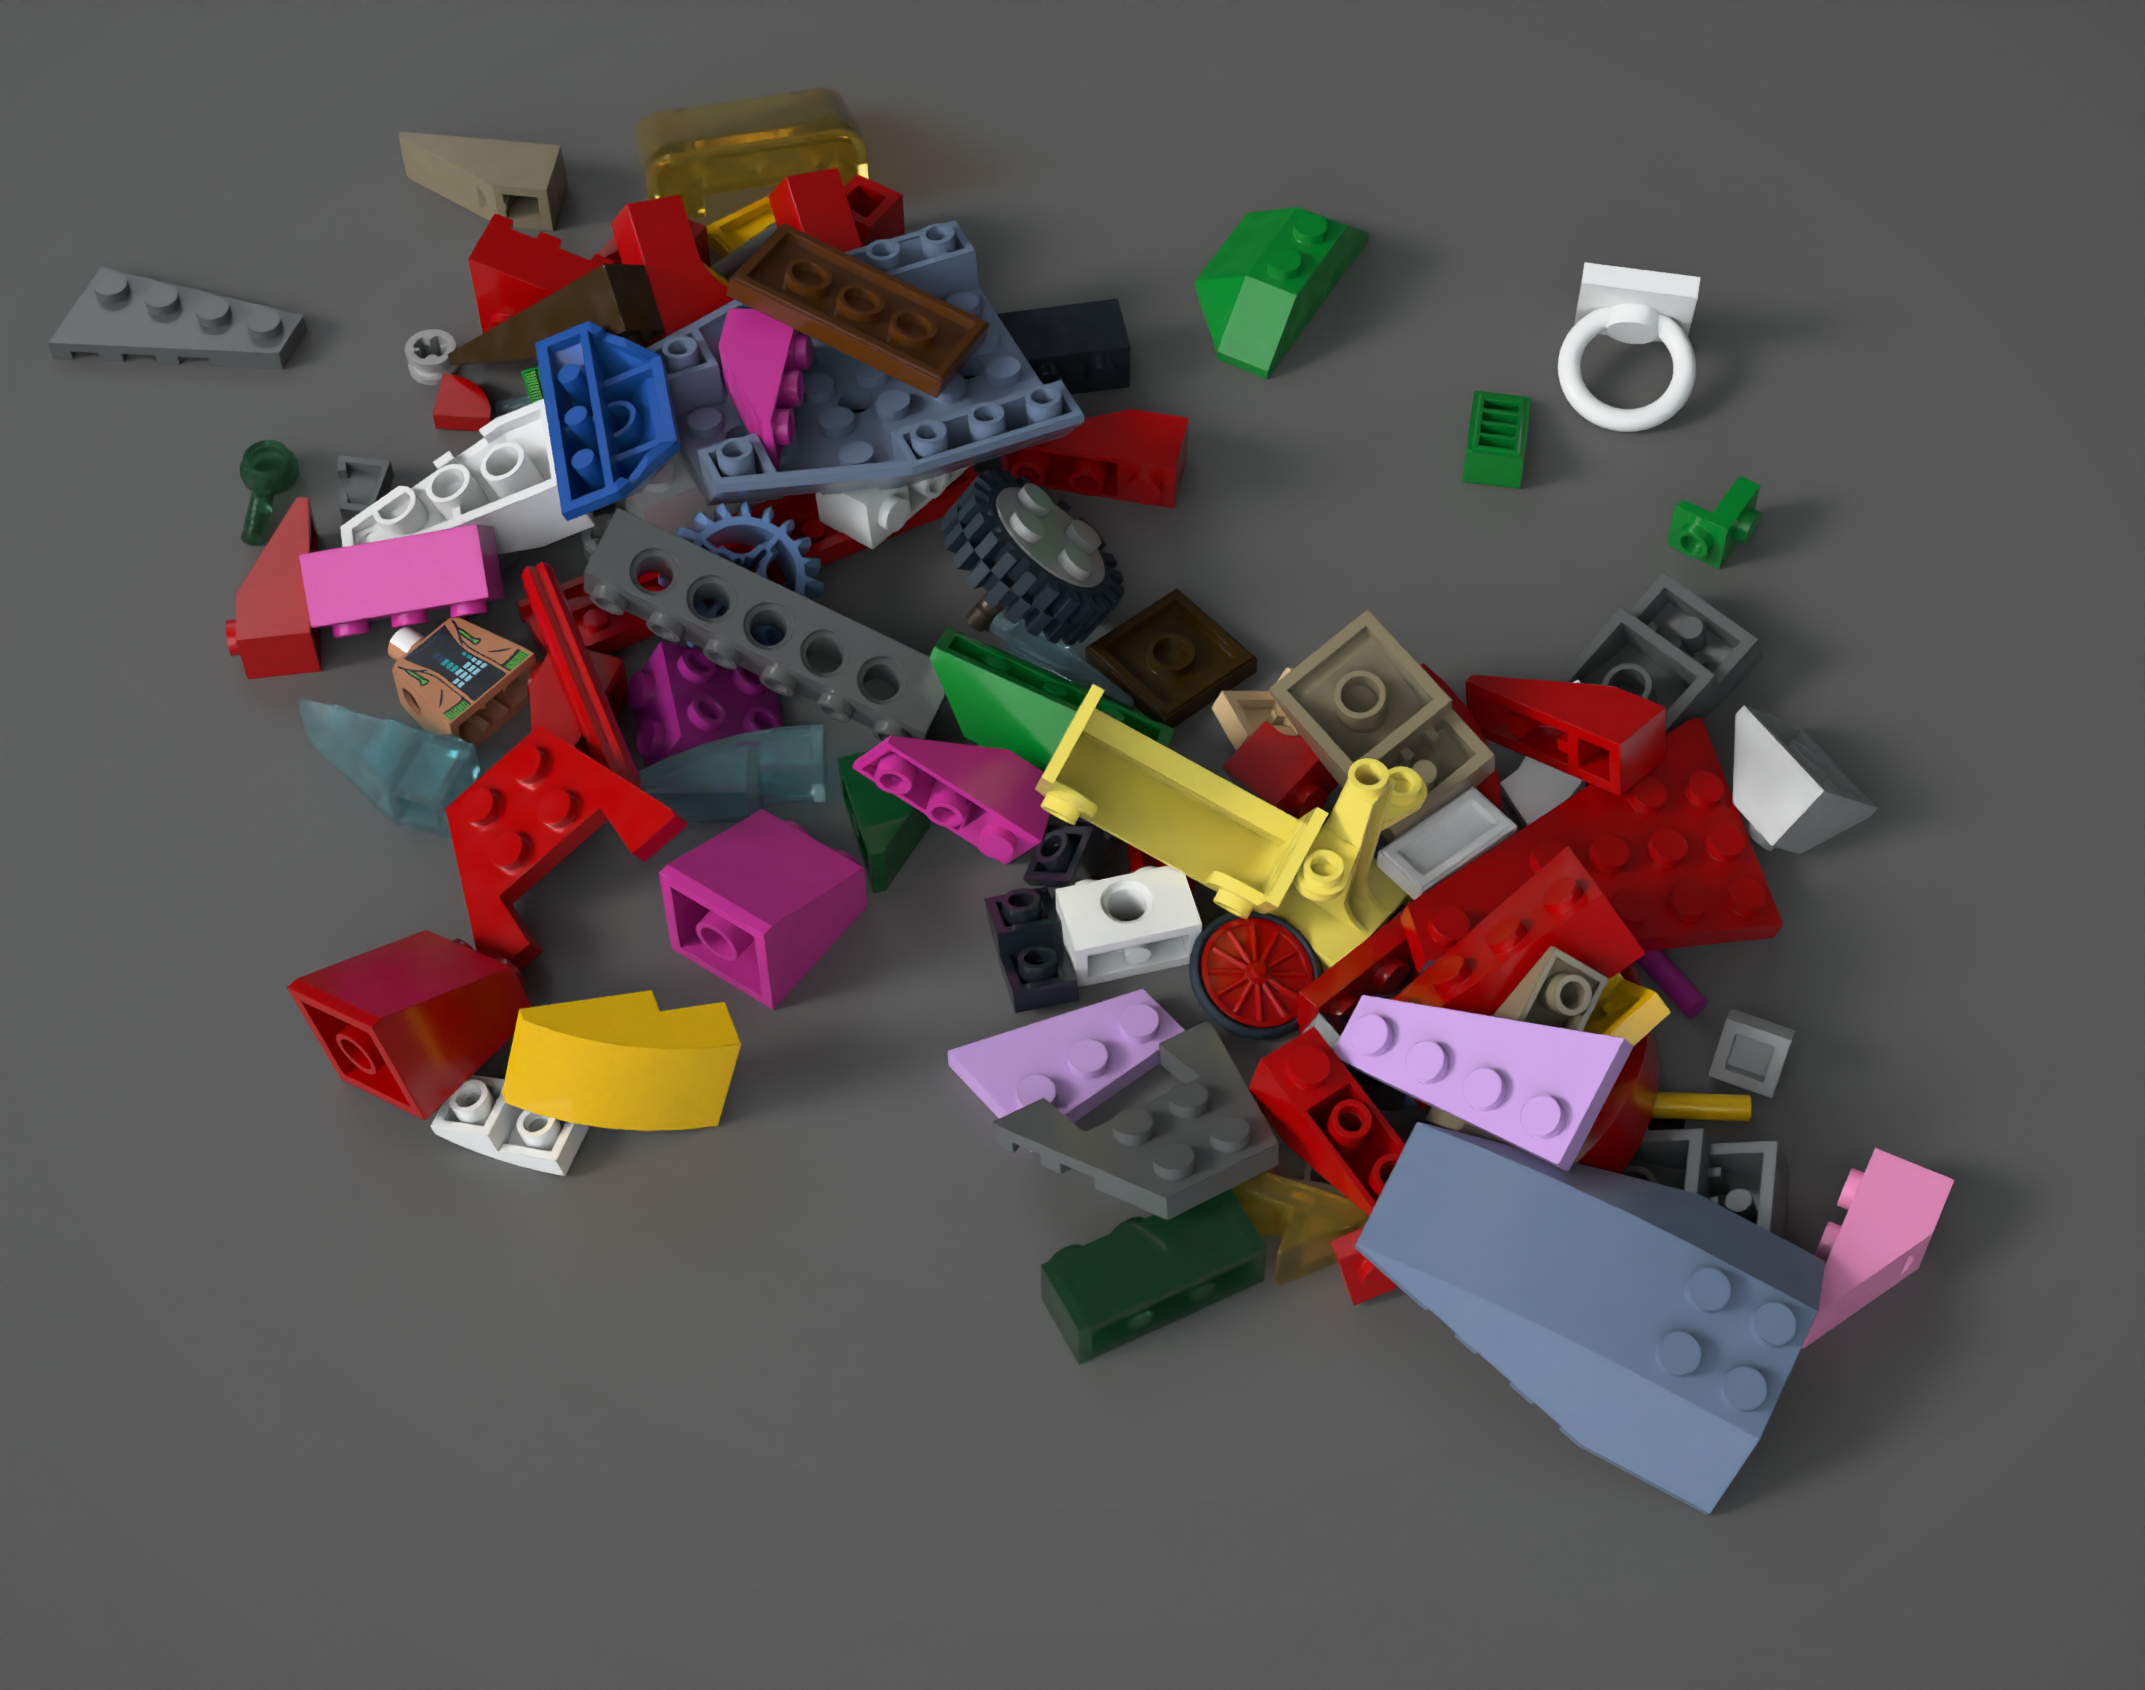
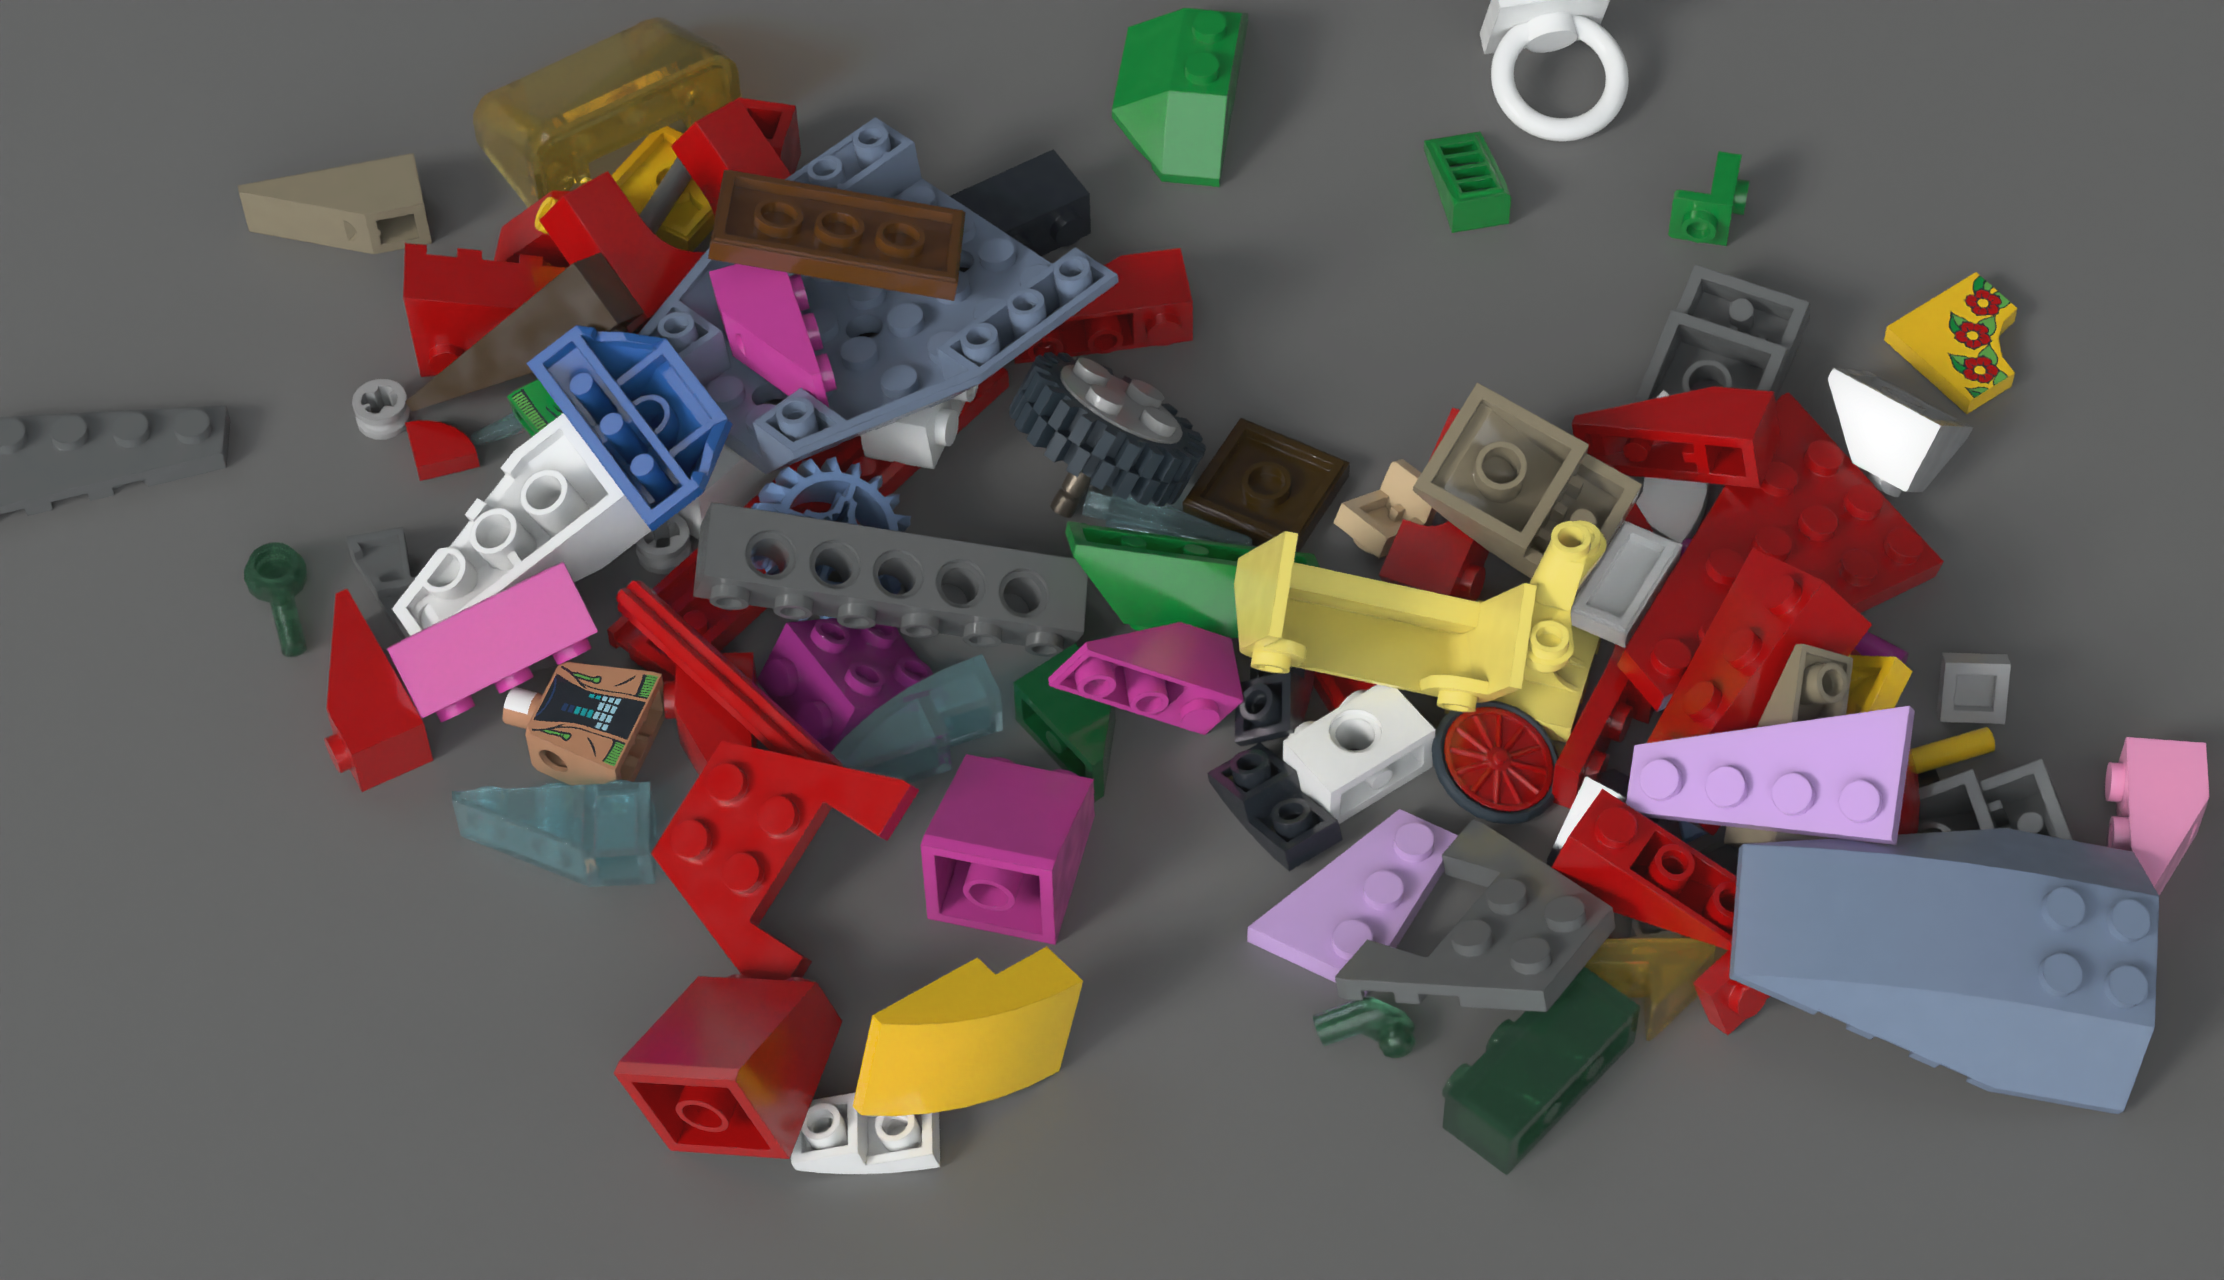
camera: 20 degrees left, 0 degrees up
(1019, 1173) = (1371, 1018): none -> clear green arm
(1899, 721) = (1957, 341): none -> yellow tile

